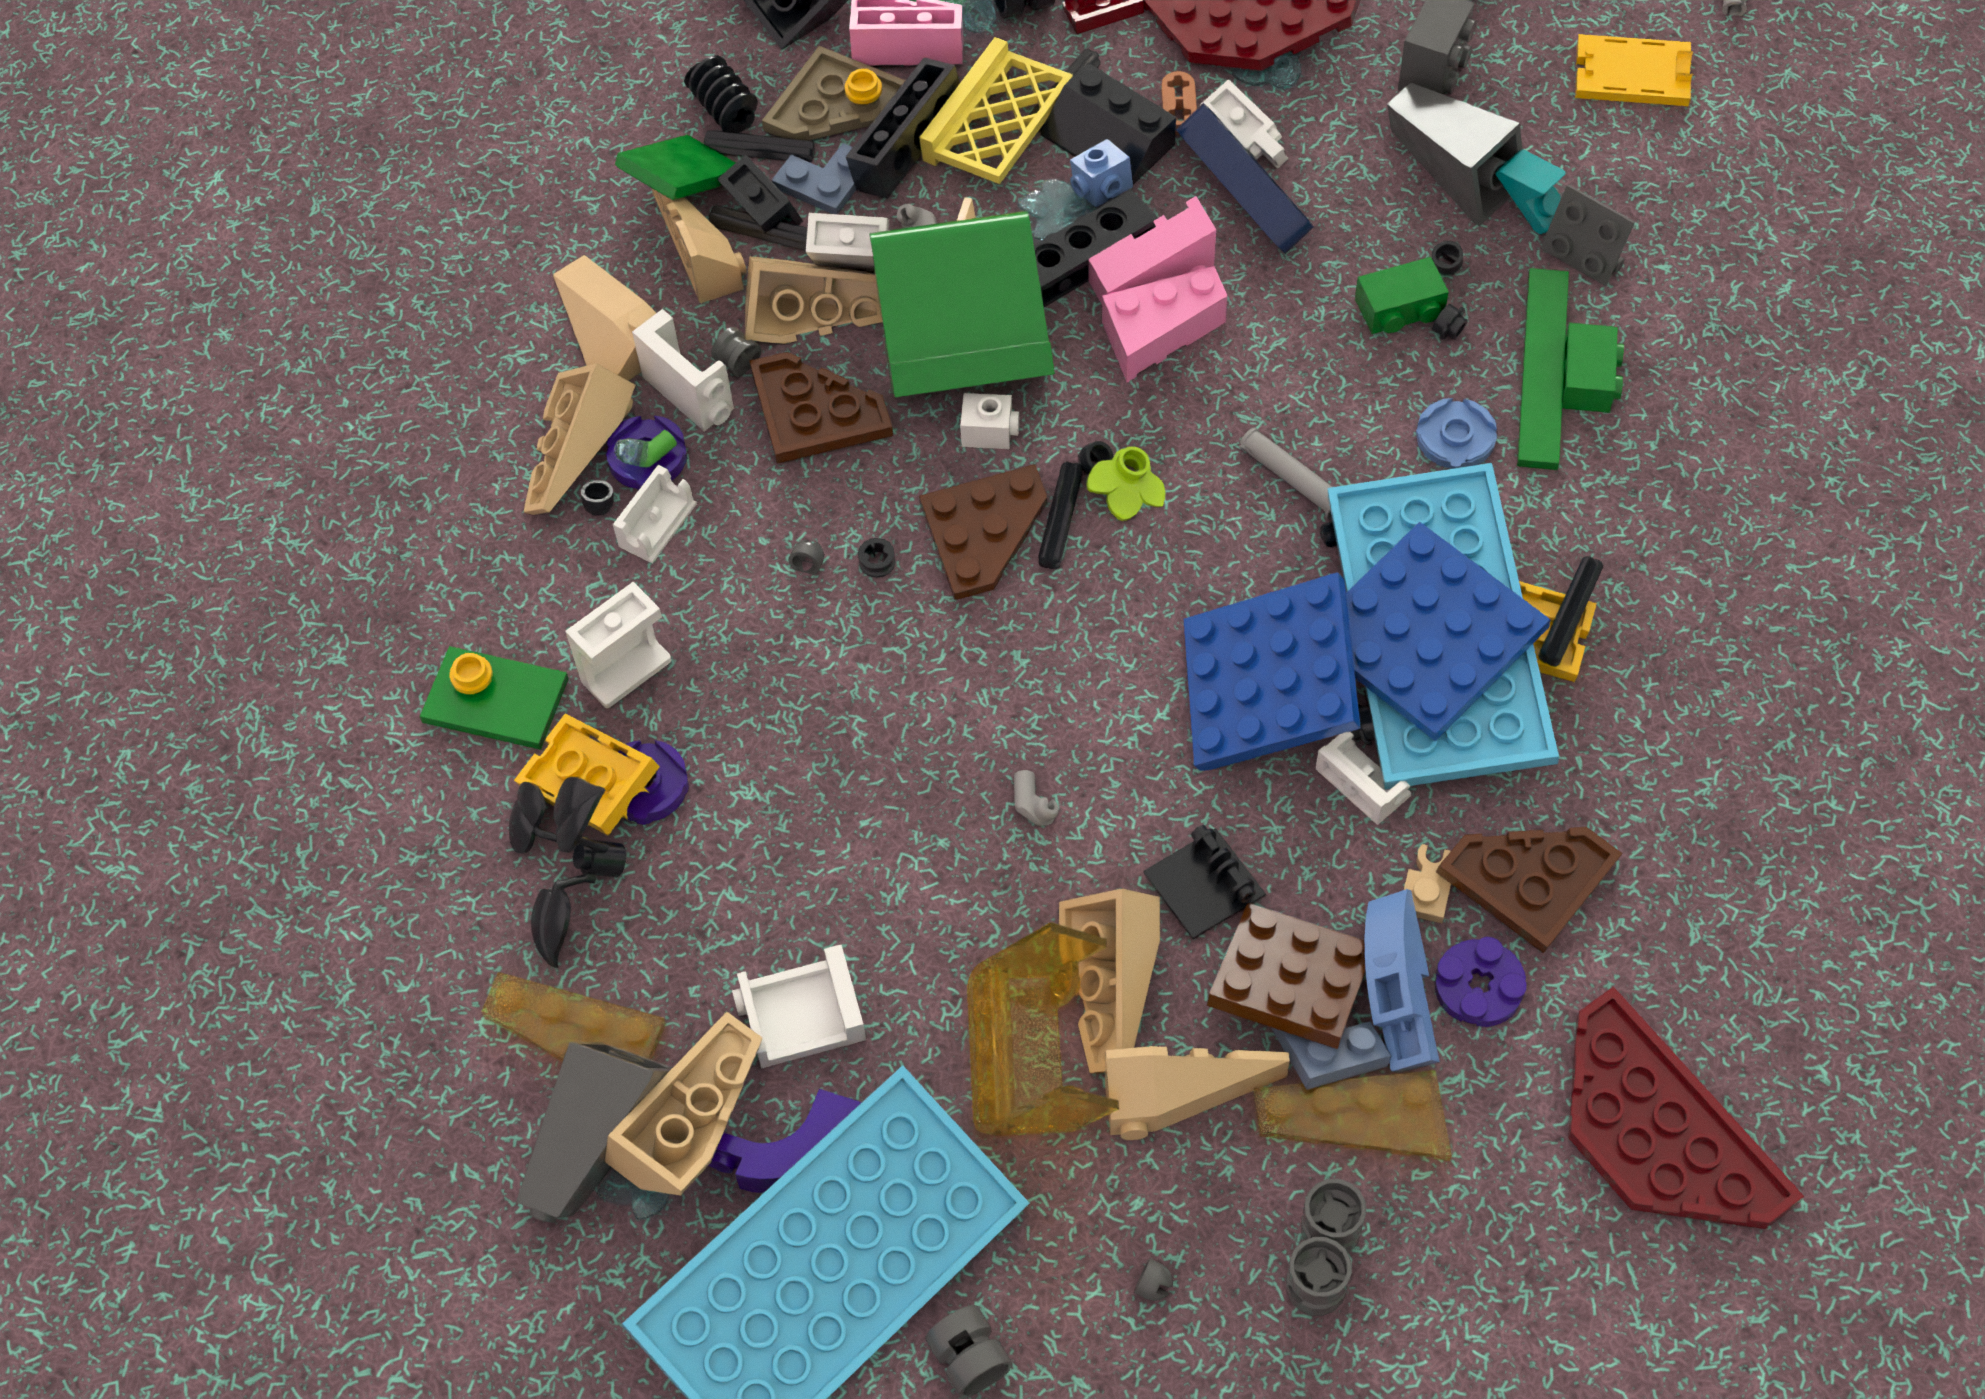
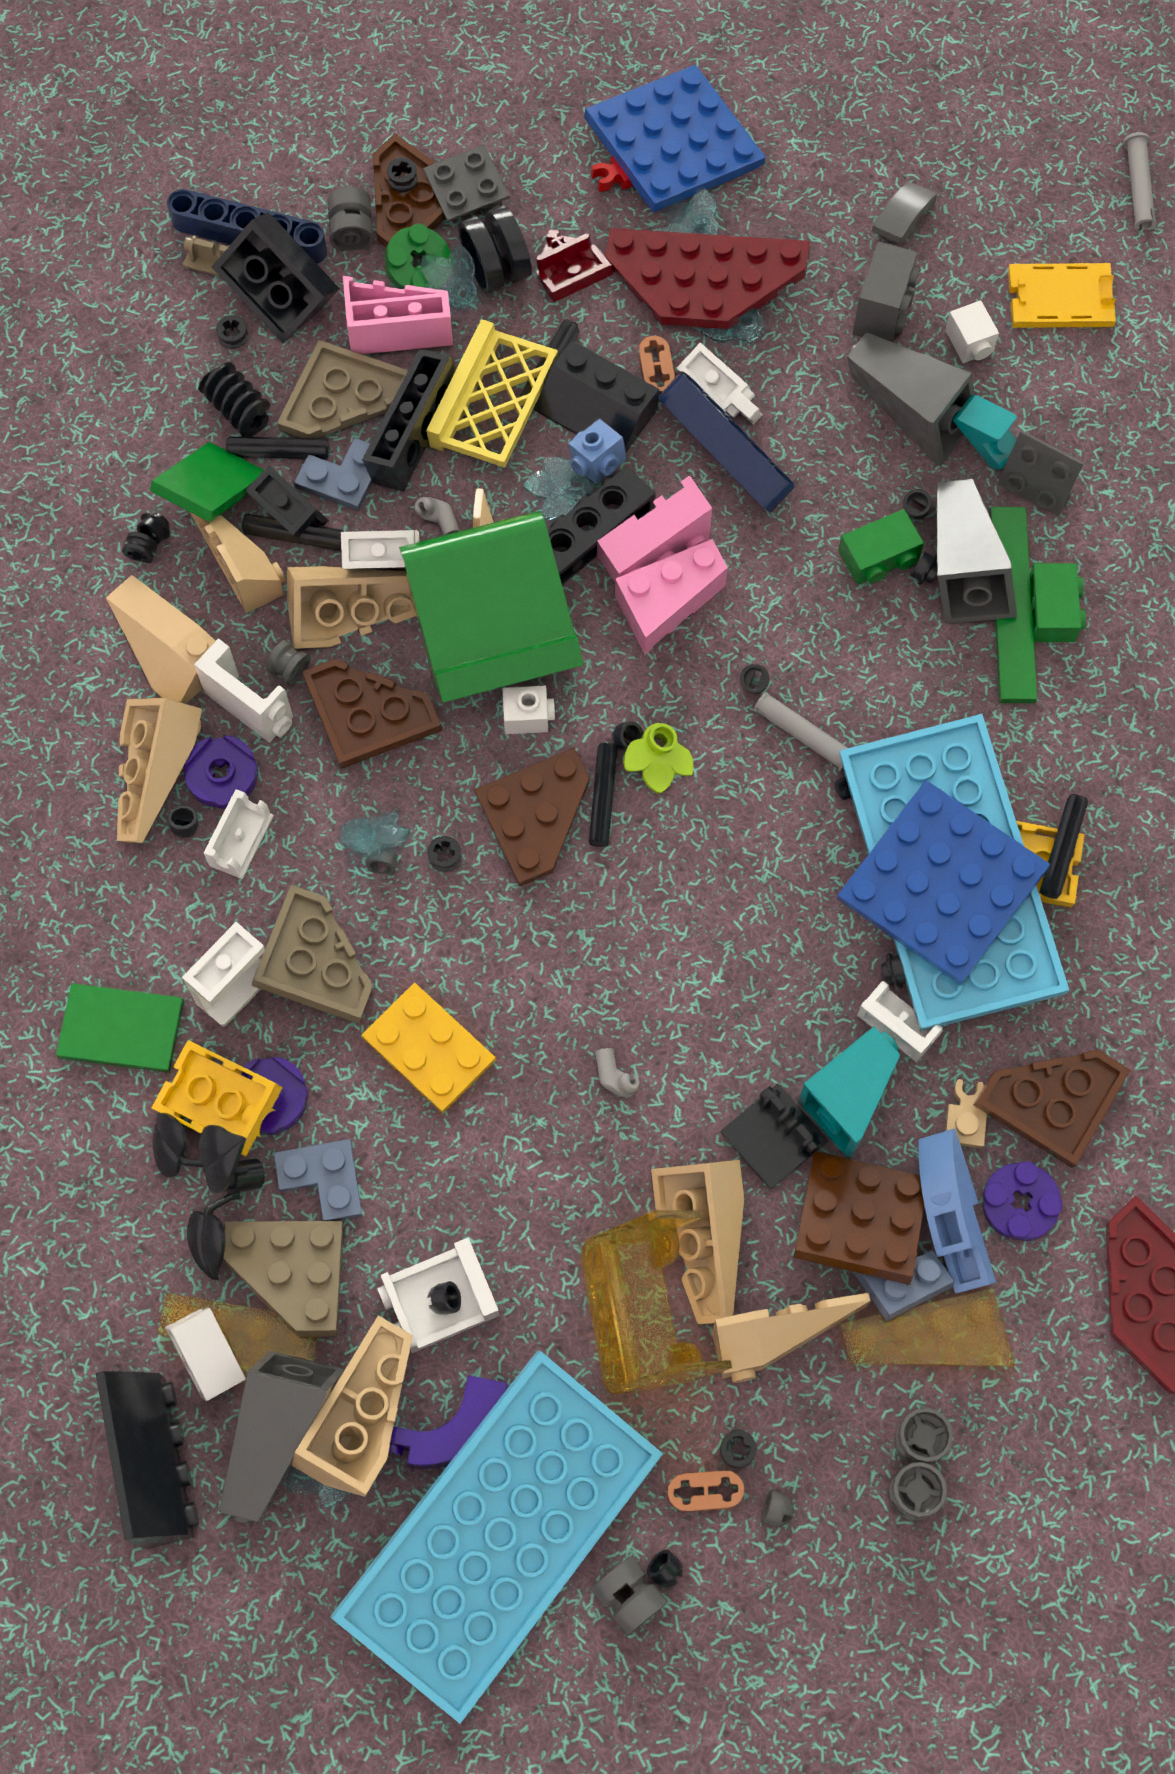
camera: 10 degrees left, 10 degrees up
(444, 1133) = (146, 1458): none -> black slope
(470, 673) = (96, 1011): yellow plate -> none
(528, 1034) = (205, 1353): none -> white hinge
(596, 227) = (139, 547): none -> black bush
(614, 207) = (154, 524): none -> black plate
(639, 961) = (291, 1270): none -> dark tan plate
(642, 452) = (220, 776): arm -> none
(696, 862) = (329, 1168): none -> sand blue plate
(715, 647) = (313, 959): none -> dark tan plate
(730, 24) = (233, 341): none -> black bush
(792, 529) = (372, 835): none -> clear light blue plate
(806, 1009) = (445, 1298): none -> black hinge
(829, 752) = (428, 1047): none -> yellow plate
(863, 86) = (366, 382): yellow plate -> none
(1014, 1330) = (668, 1573): none -> black hinge
(1073, 1241) = (705, 1480): none -> nougat beam
(1104, 1215) = (748, 1441): none -> black bush
(1238, 409) = (747, 677): none -> black hinge
(1271, 673) = (810, 936): blue plate -> none
(1295, 835) = (849, 1089): none -> teal slope
(1452, 444) = (941, 687): medium blue tile -> none
(1499, 314) = (970, 558): none -> slope
(1528, 93) = (972, 332): none -> white brick

